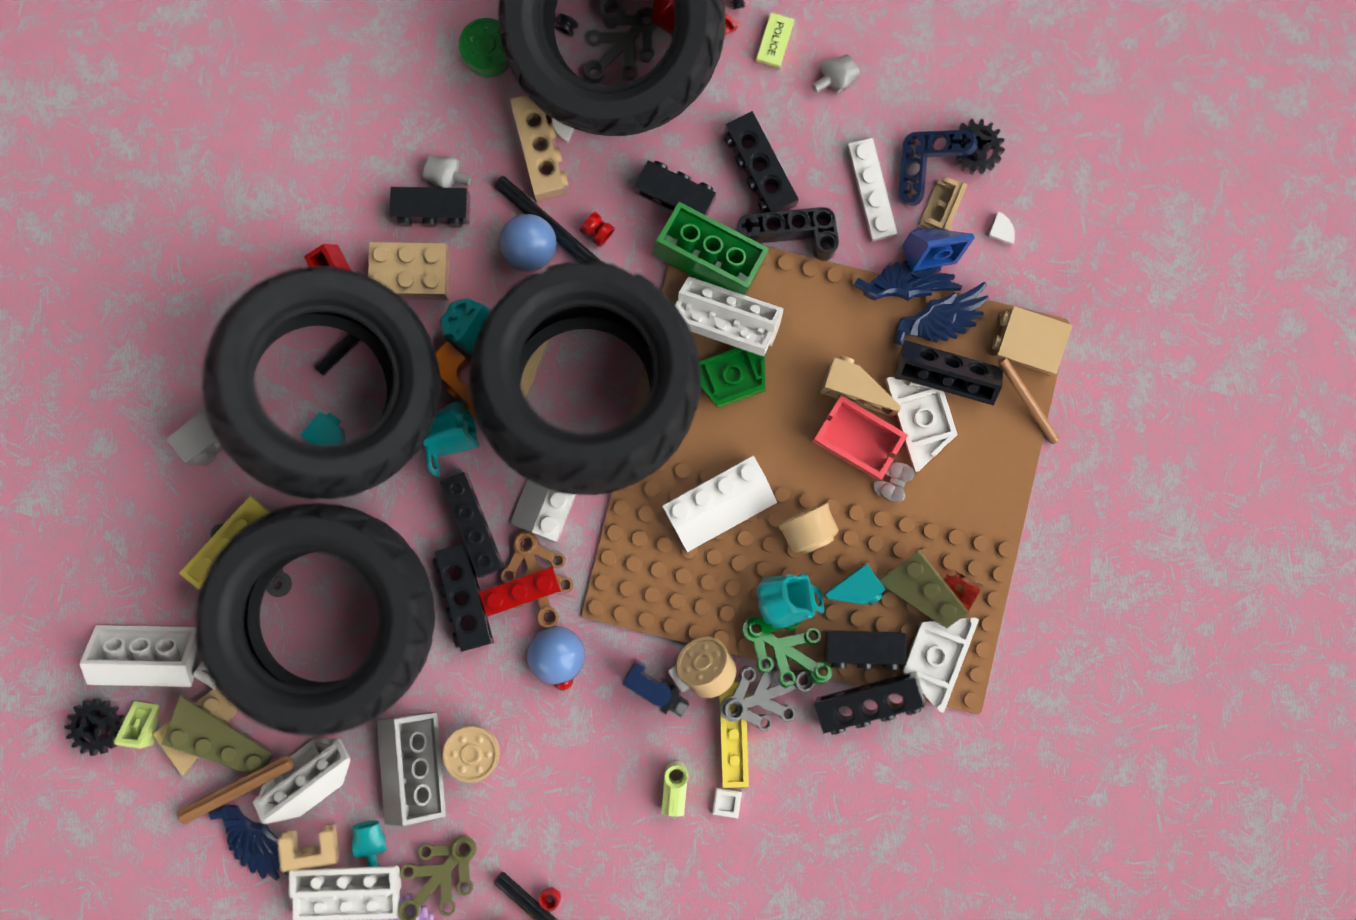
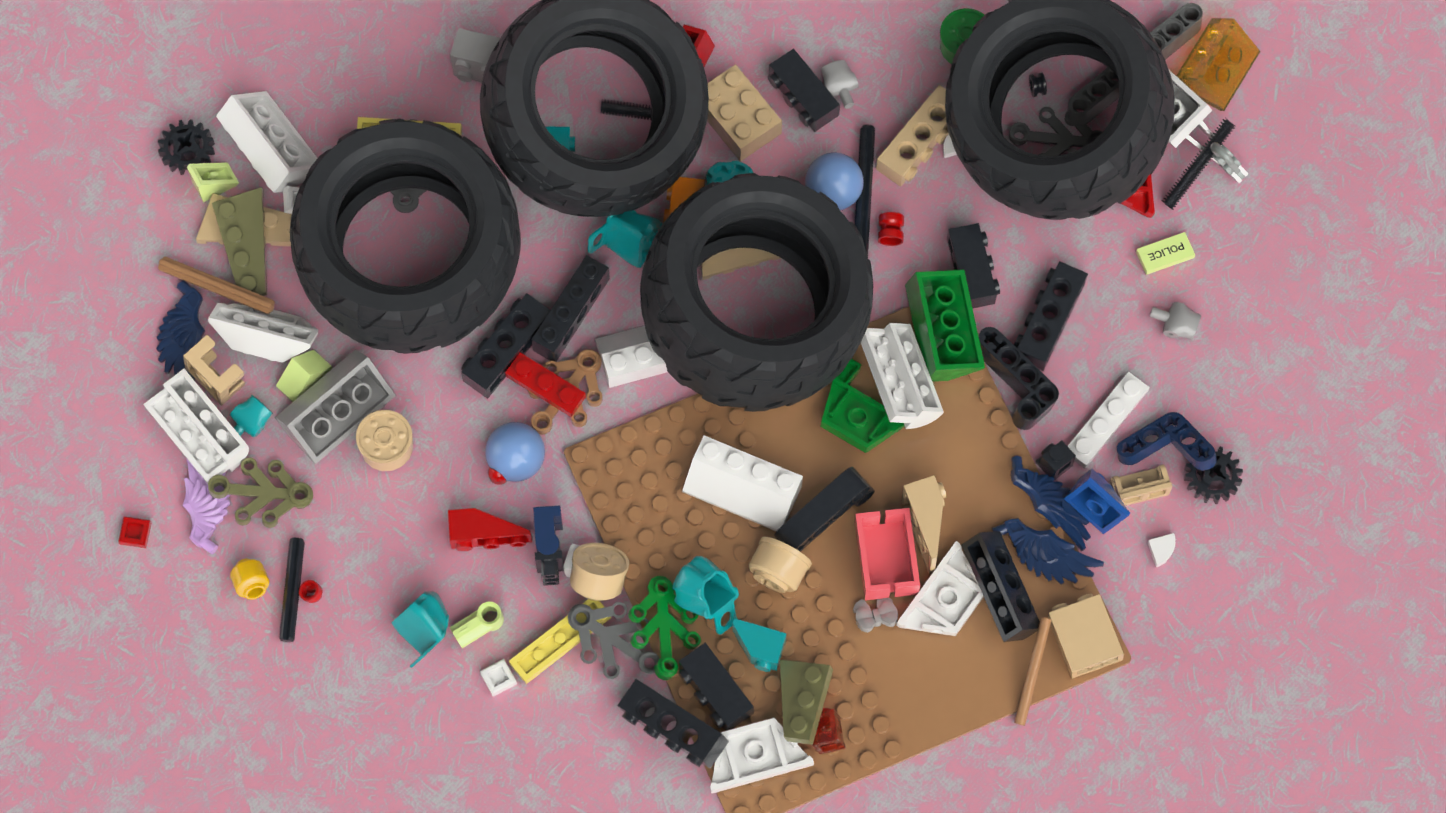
camera: 55 degrees right, 15 degrees down
(364, 773) = (302, 373): none -> yellowish green slope
(596, 732) = (477, 529): none -> red slope
(645, 831) = (423, 623): none -> teal piece
(789, 458) = (825, 509): none -> black beam
(877, 253) = (1056, 459): none -> black brick

